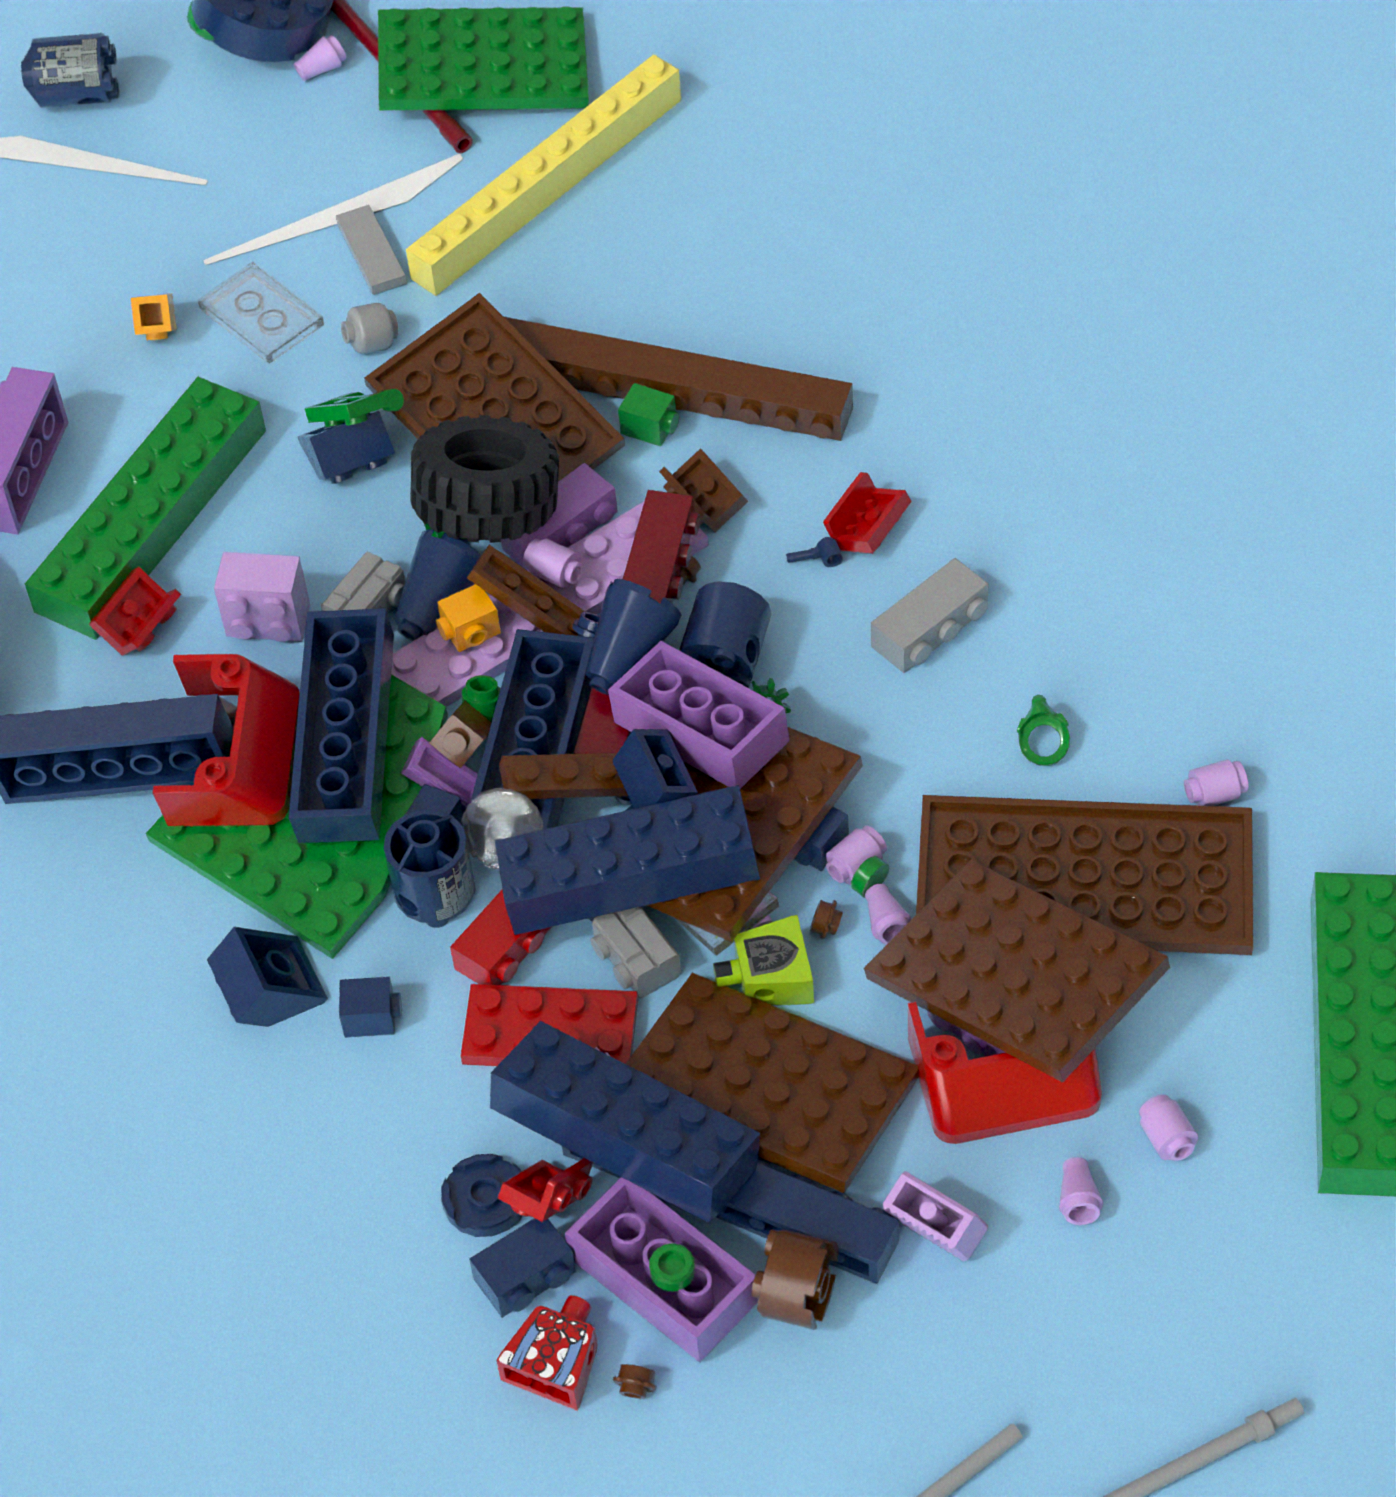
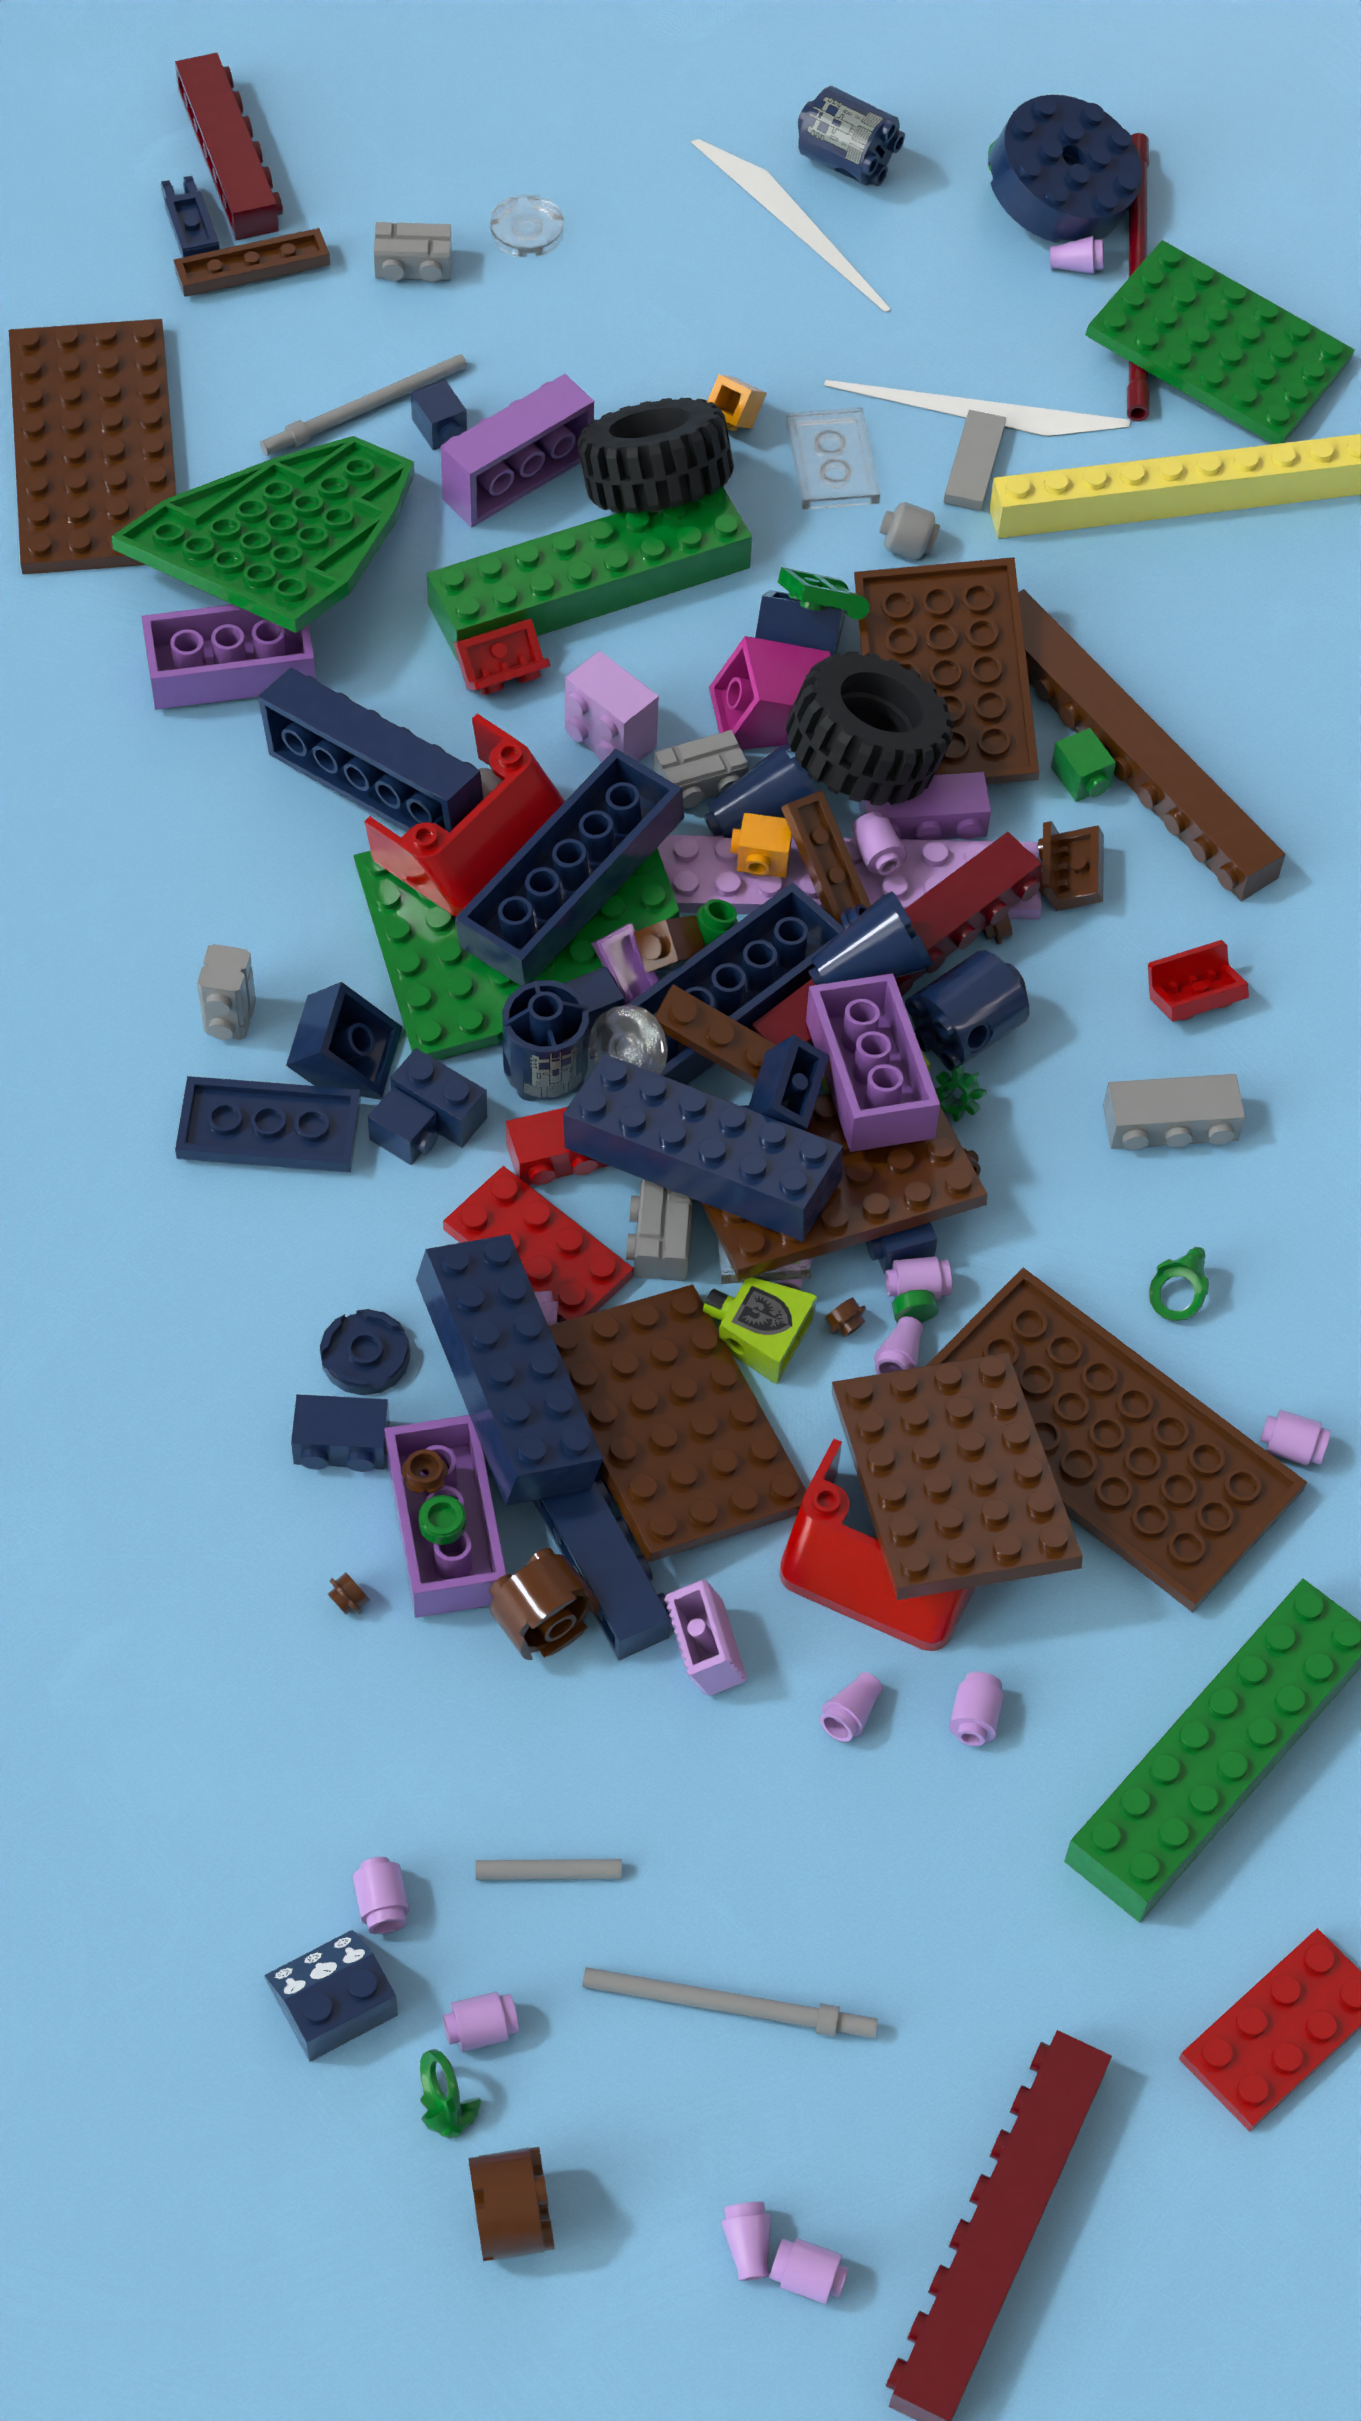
camera: 30 degrees right, 5 degrees up
(135, 385) = (655, 455): none -> black tyre
(142, 997) = (226, 992): none -> light grey brick
(258, 1077) = (268, 1124): none -> dark blue plate
(367, 508) = (759, 689): none -> dark pink slope
(381, 957) = (455, 1099): none -> dark blue brick
(546, 1188) = (407, 1381): red bracket -> none
(552, 1353) = (302, 1522): torso -> none
(628, 1230) = (421, 1461): none -> reddish brown plate
(826, 549) = (1135, 991): dark blue hand -> none

